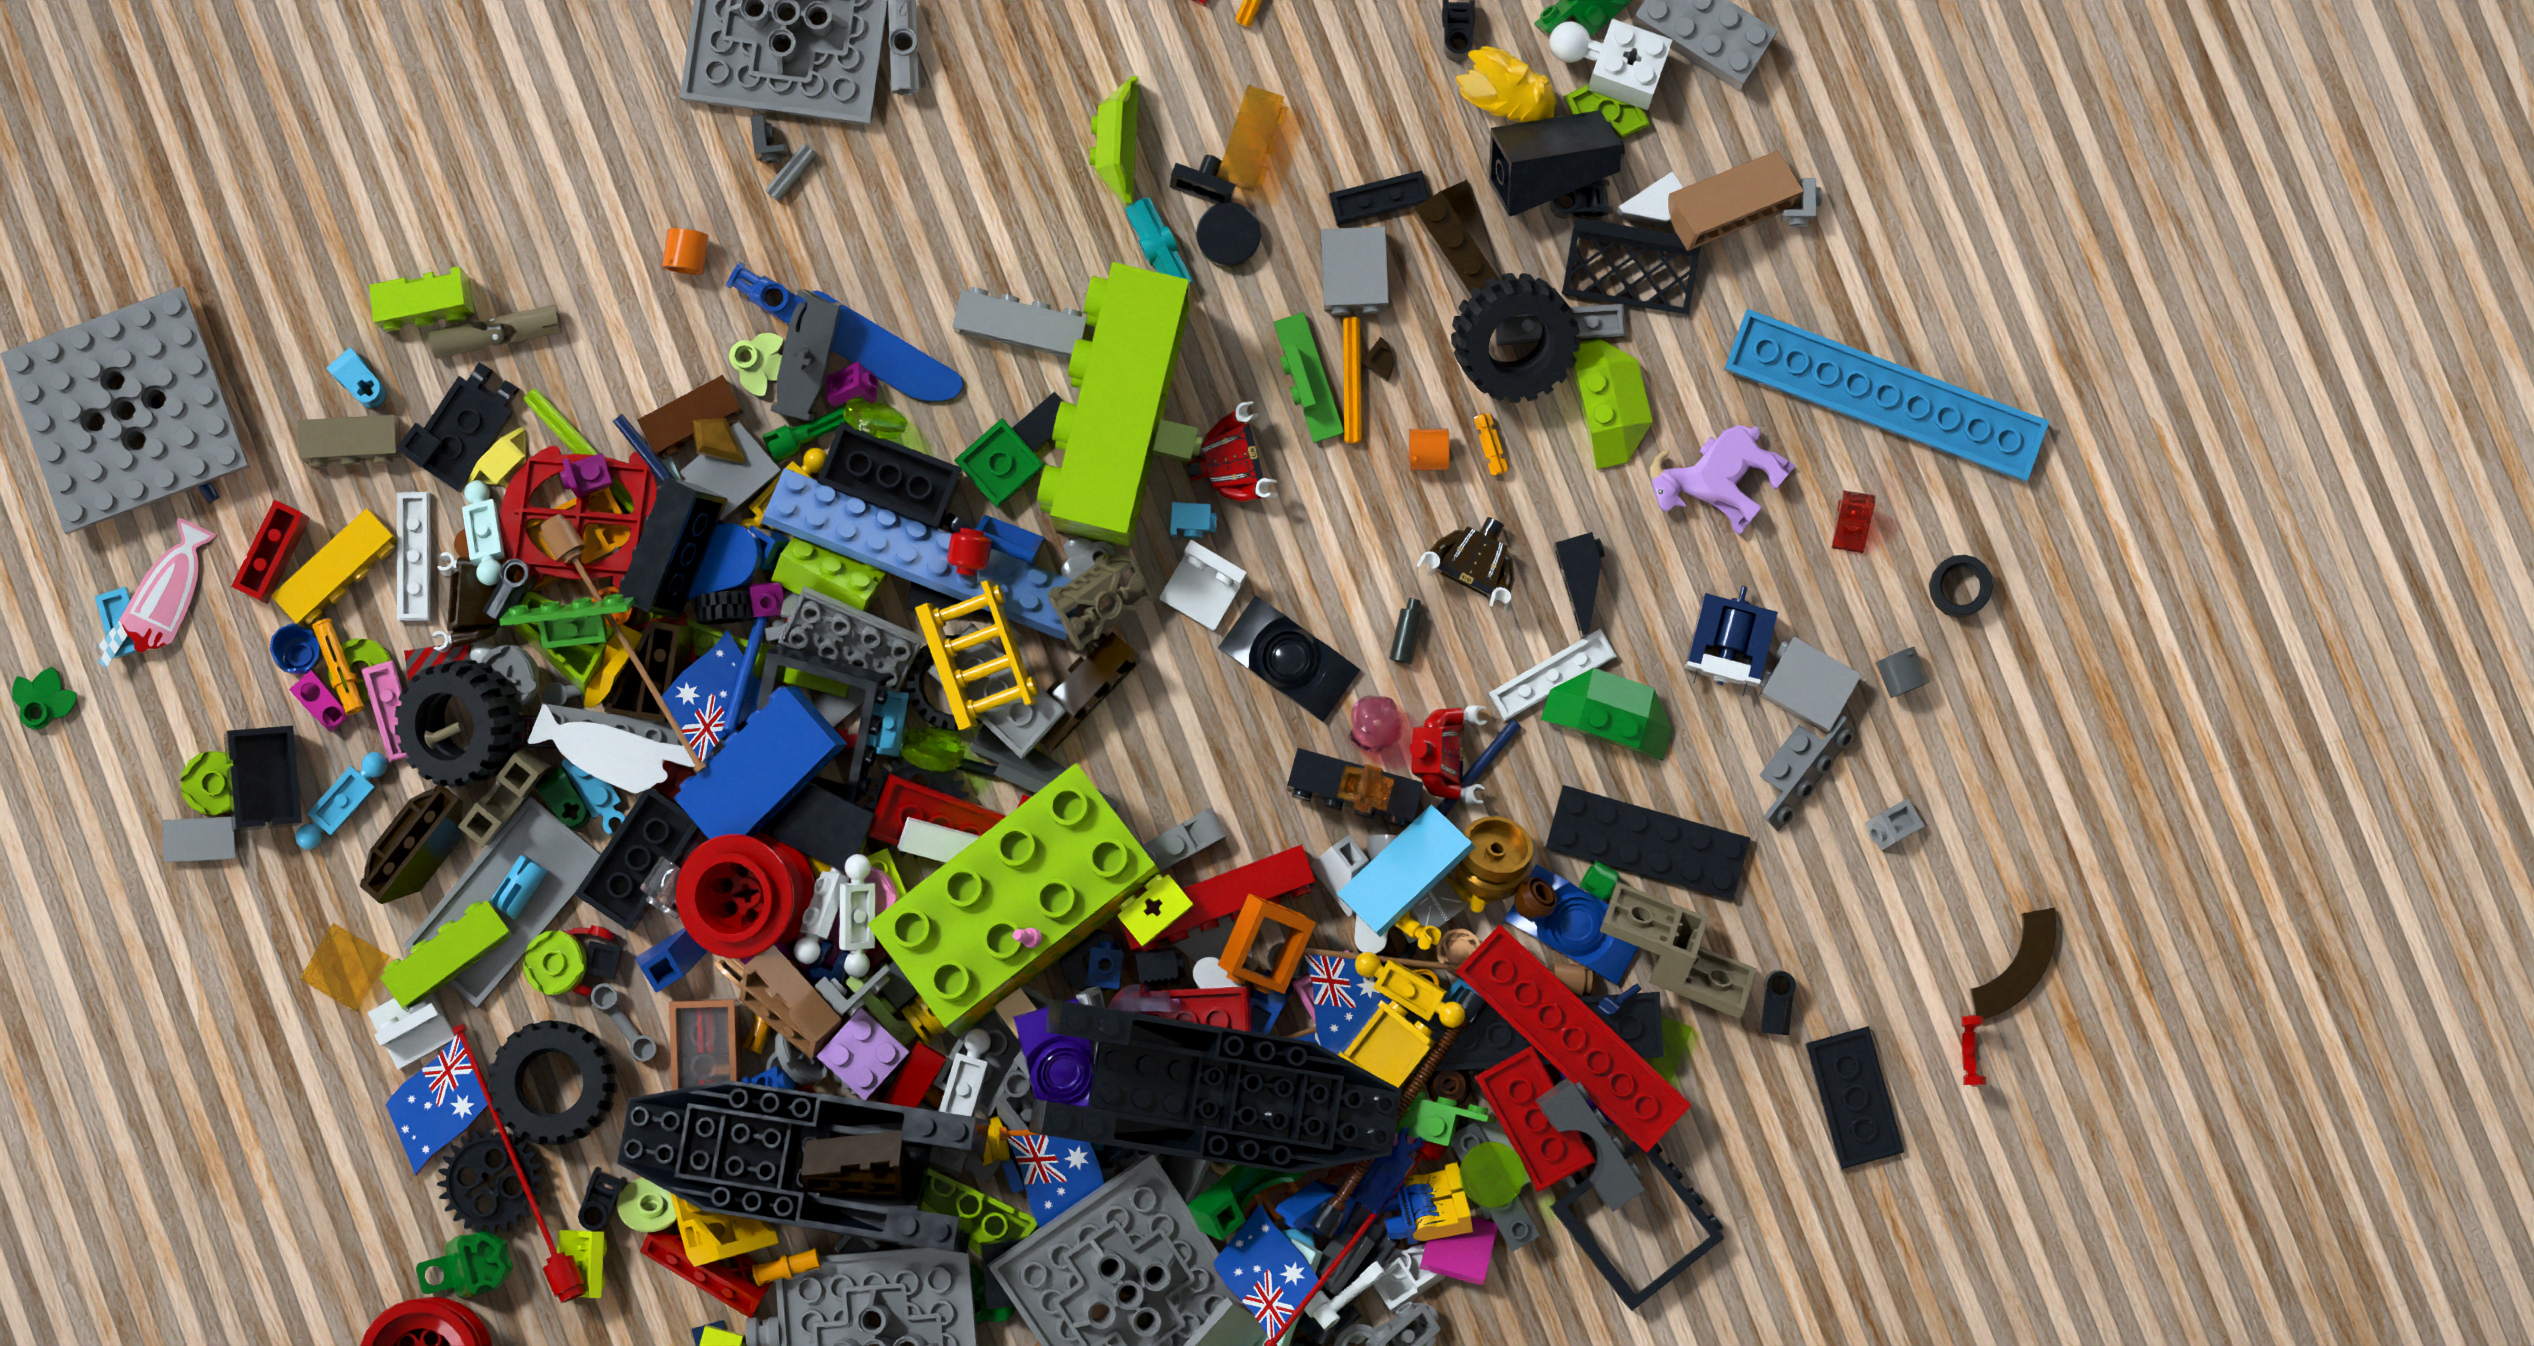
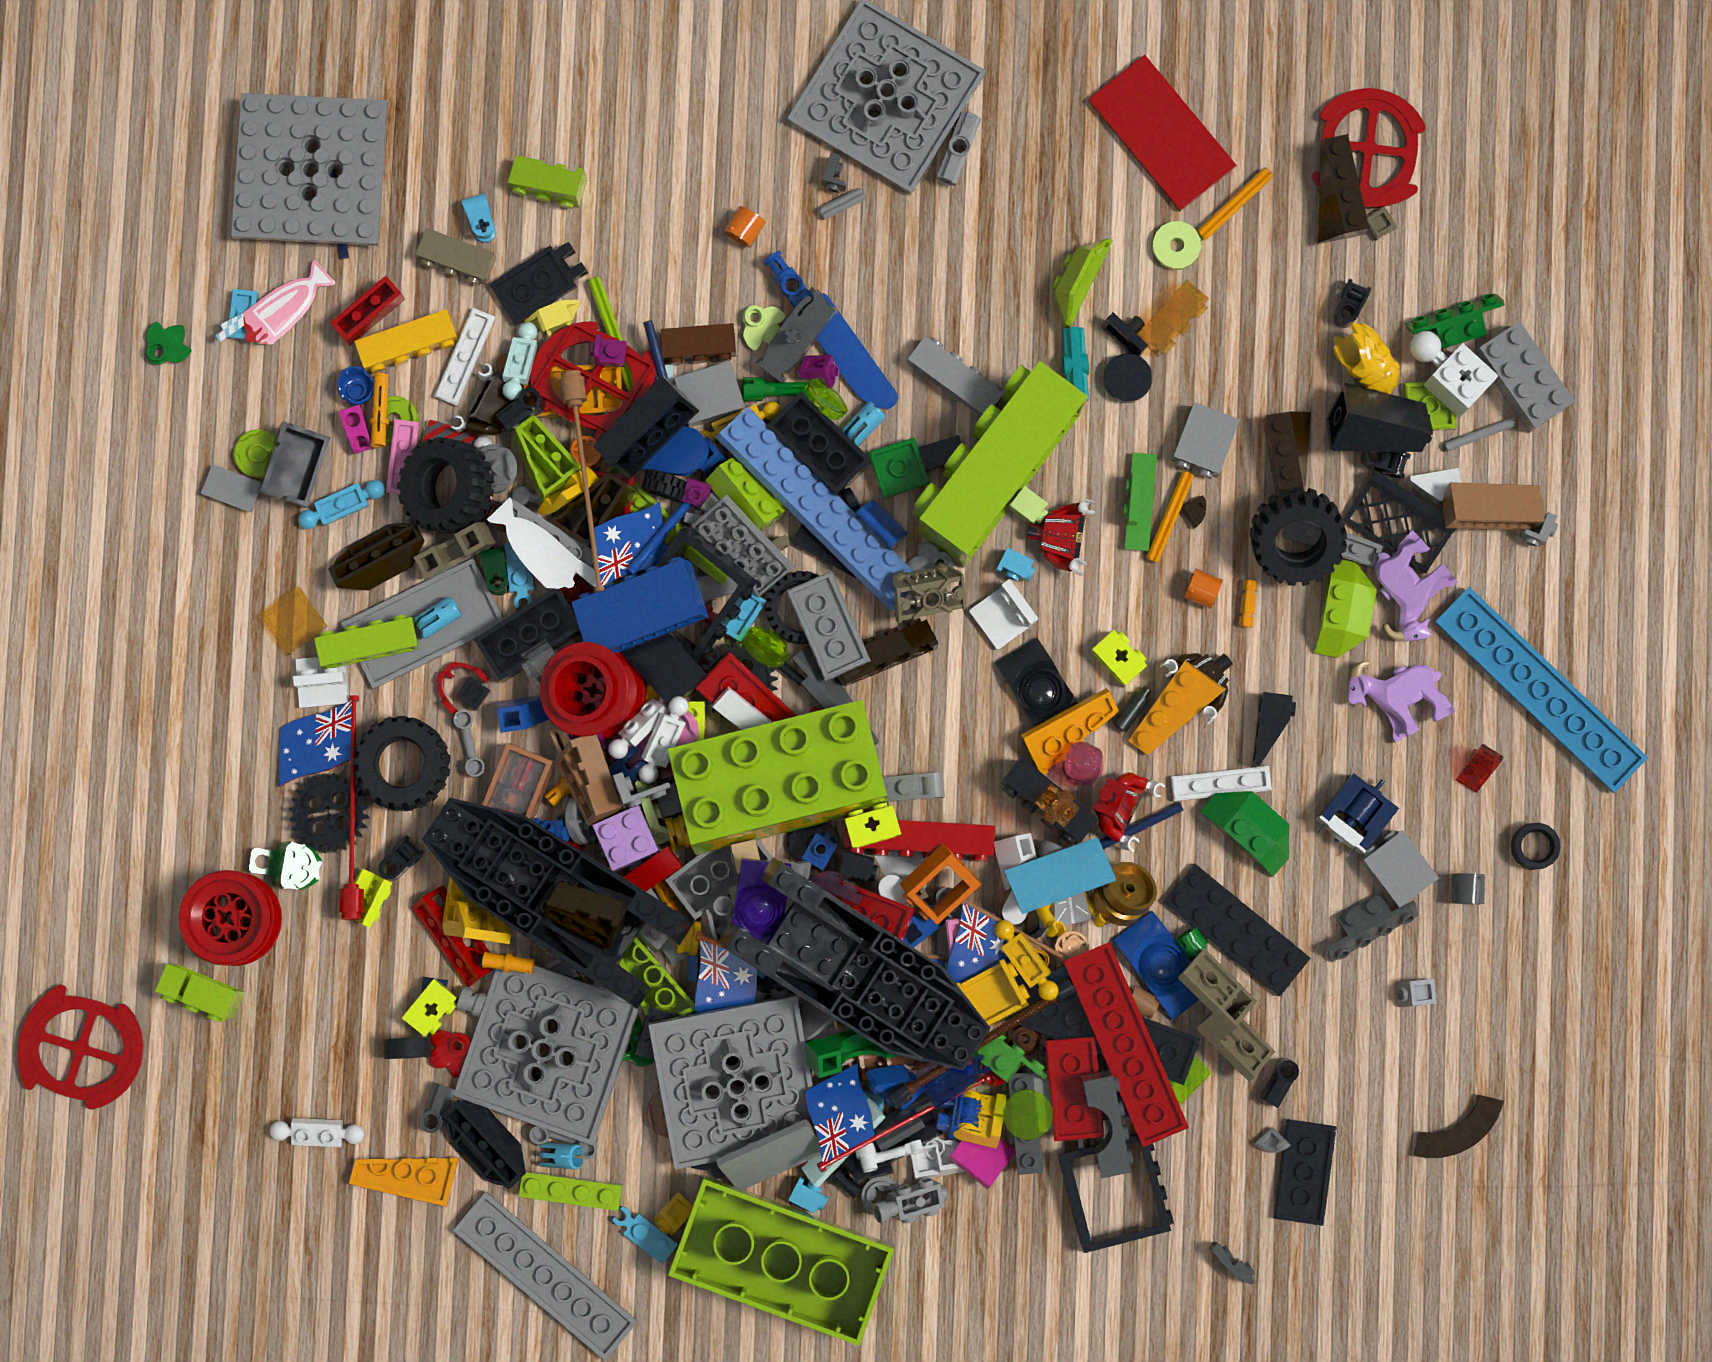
camera: 20 degrees right, 0 degrees up
(419, 445) = (502, 281): black plate -> none
(432, 738) = (421, 488): dark tan piece -> none
(480, 334) = (576, 222): dark tan piece -> none
(555, 963) = (439, 681): lime tile -> none
(569, 624) = (553, 450): bright green bracket -> none
(638, 1198) = (426, 870): yellowish green dish -> none
(716, 440) = (709, 366): pearl gold piece -> none
(897, 615) = (782, 542): none -> dark tan tile
(933, 427) = (864, 423): none -> medium azure arm
(955, 679) = (804, 581): yellow fence -> none
(966, 1076) = (691, 885): white plate -> none
(969, 551) = (851, 519): red head -> none
(1029, 937) = (777, 807): bright pink piece -> none
(1214, 30) = (1176, 231): none -> yellowish green tile
(1327, 708) = (1054, 737): none -> light orange wing
(1376, 591) = (1122, 671): none -> neon yellow brick
(1378, 198) = (1243, 397): black tile -> none
(1458, 602) = (1179, 702): none -> light orange wing
(1535, 898) = (1141, 935): reddish brown cone -> none
(1609, 1005) = (1161, 1032): dark blue hand -> none
(1675, 343) = (1408, 589): none -> lavender animal
(1680, 119) = (1479, 434): none -> light grey bar
(1799, 1078) = (1272, 1142): none -> light grey tile
(1824, 1248) = (1238, 1268): none -> dark grey slope
(1968, 1050) = (1399, 1174): red piece -> none

